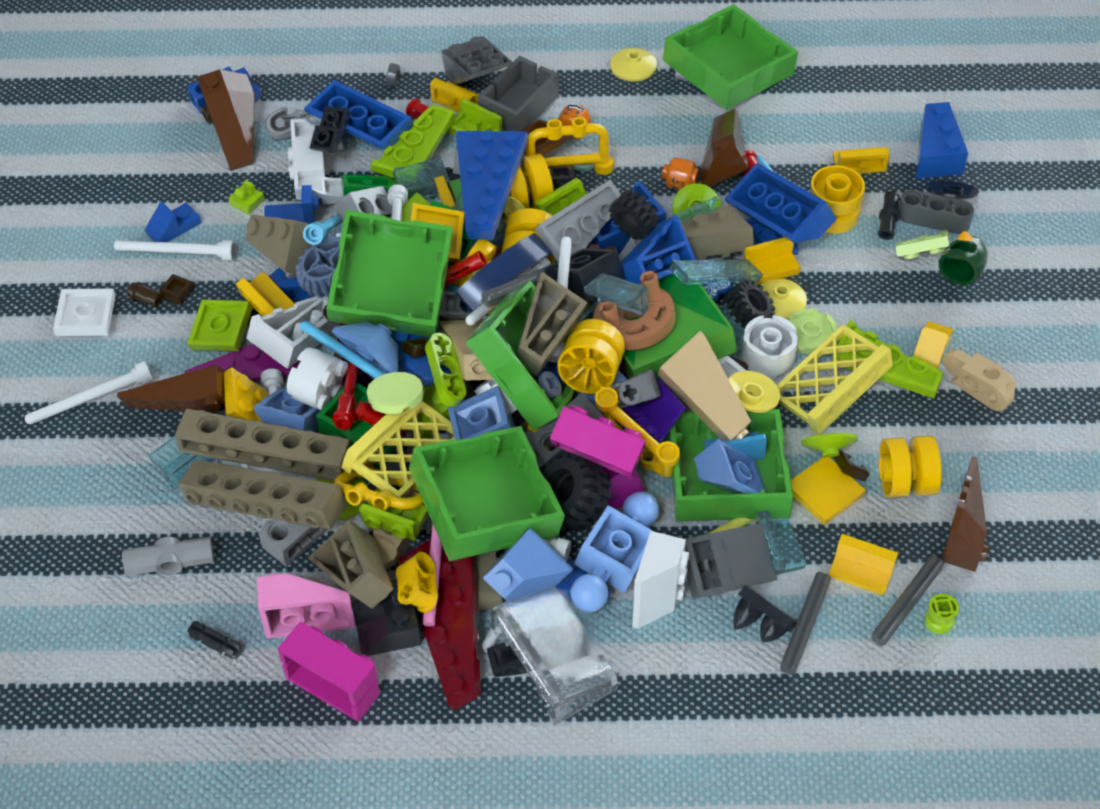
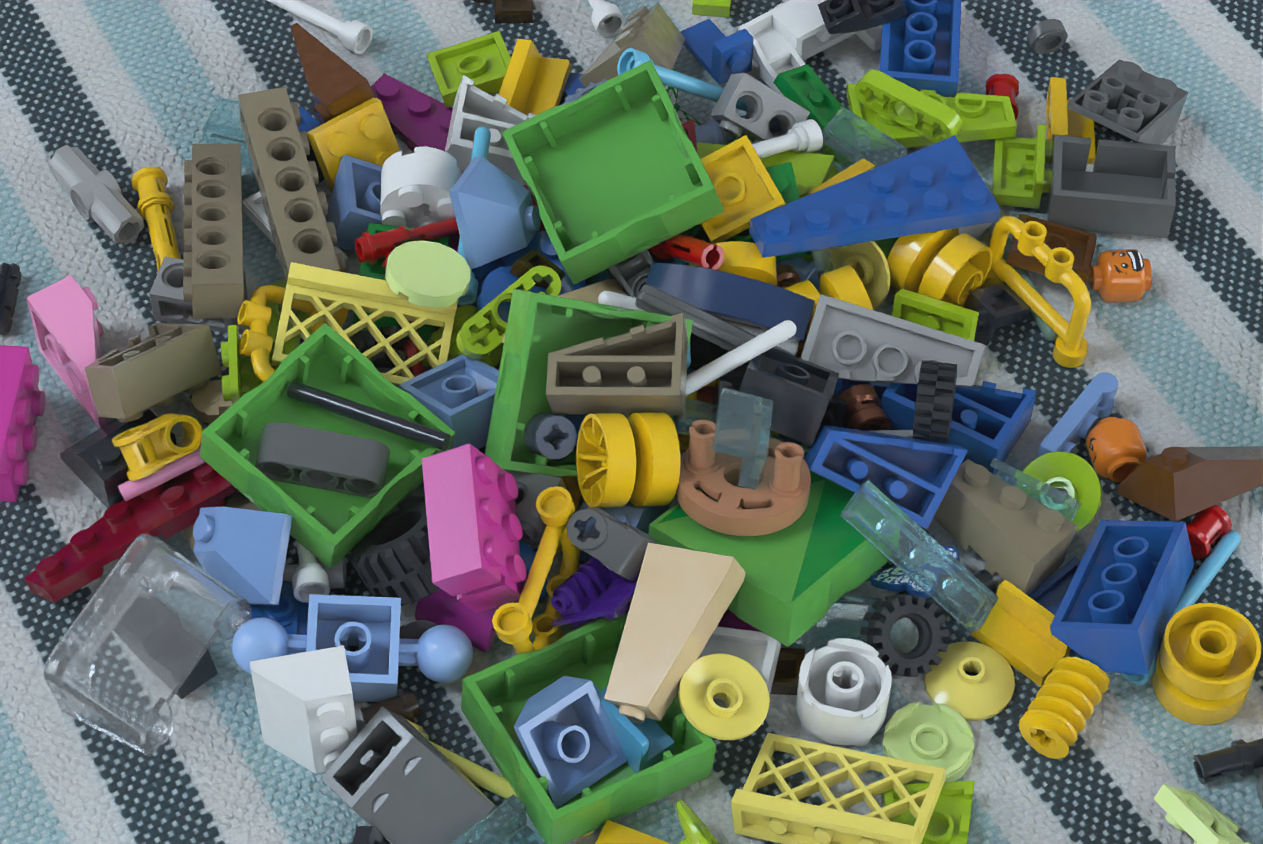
camera: 60 degrees right, 0 degrees up
(203, 527) = (156, 208): none -> yellow pin
(392, 150) = (887, 97): none -> lime beam
(484, 460) = (369, 415): none -> black bar
(495, 497) = (322, 459): none -> dark grey beam
(655, 181) = (1082, 416): none -> medium blue plate
(825, 265) = (1063, 706): none -> yellow piece

